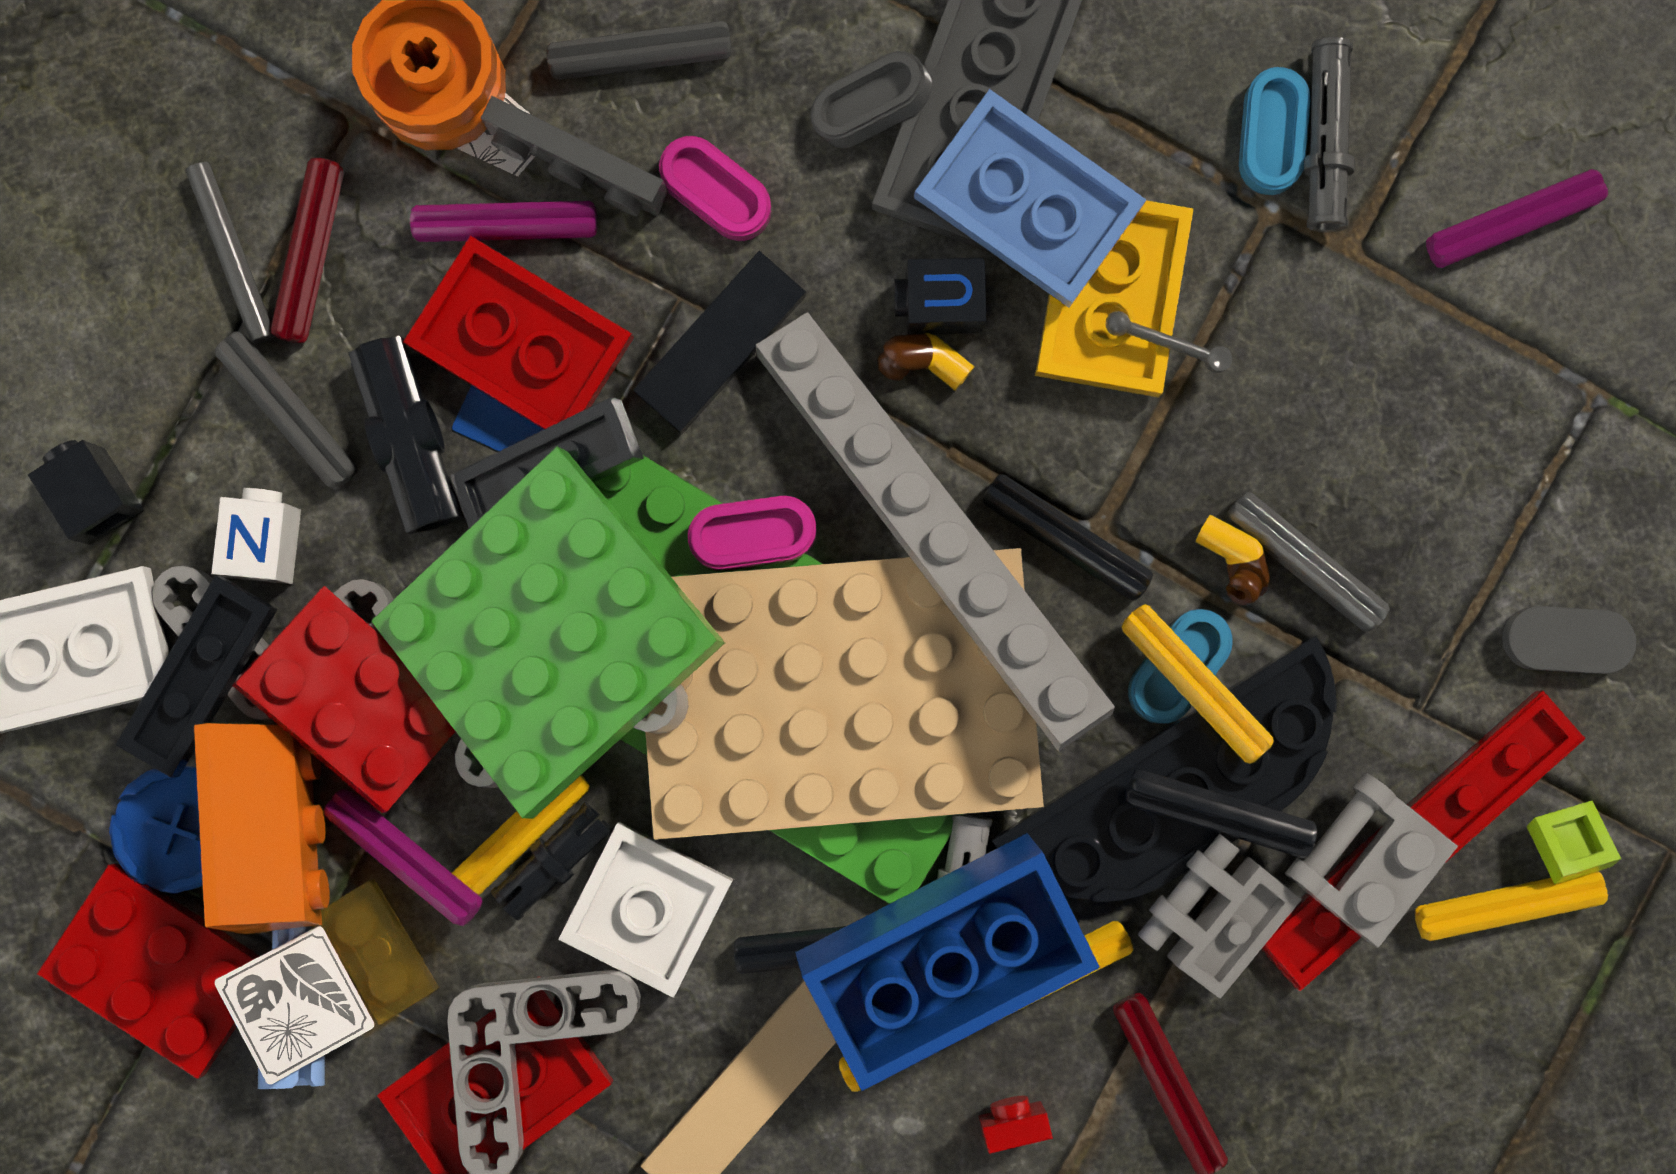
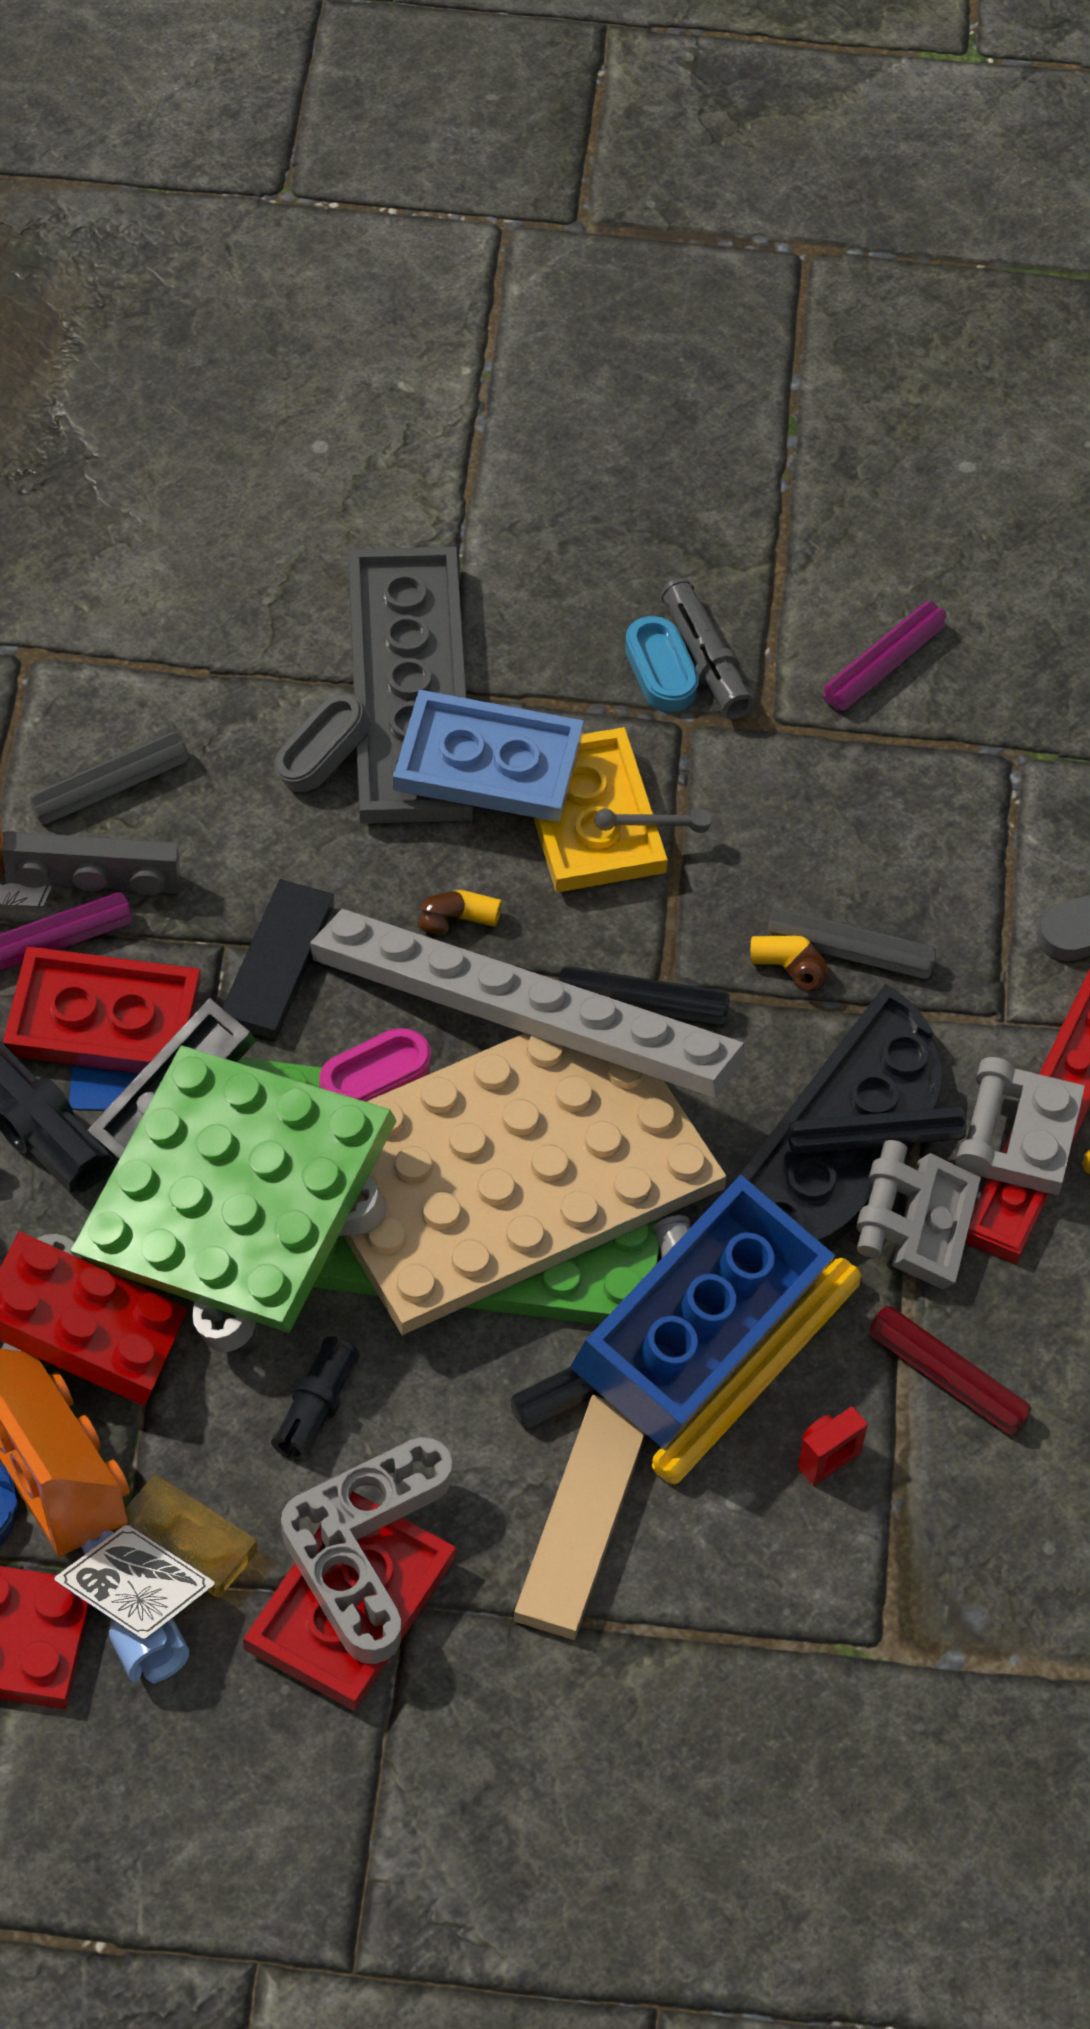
camera: 25 degrees left, 30 degrees down
(403, 857) = (181, 1434): magenta axle -> none
(514, 839) = (269, 1399): yellow axle -> none
(645, 909) = (418, 1392): white plate -> none
(715, 188) = (223, 853): dark pink tile -> none
(942, 296) = (451, 854): black brick -> none
(1152, 693) = (786, 1055): dark azure tile -> none
(1197, 684) = (807, 1046): yellow axle -> none

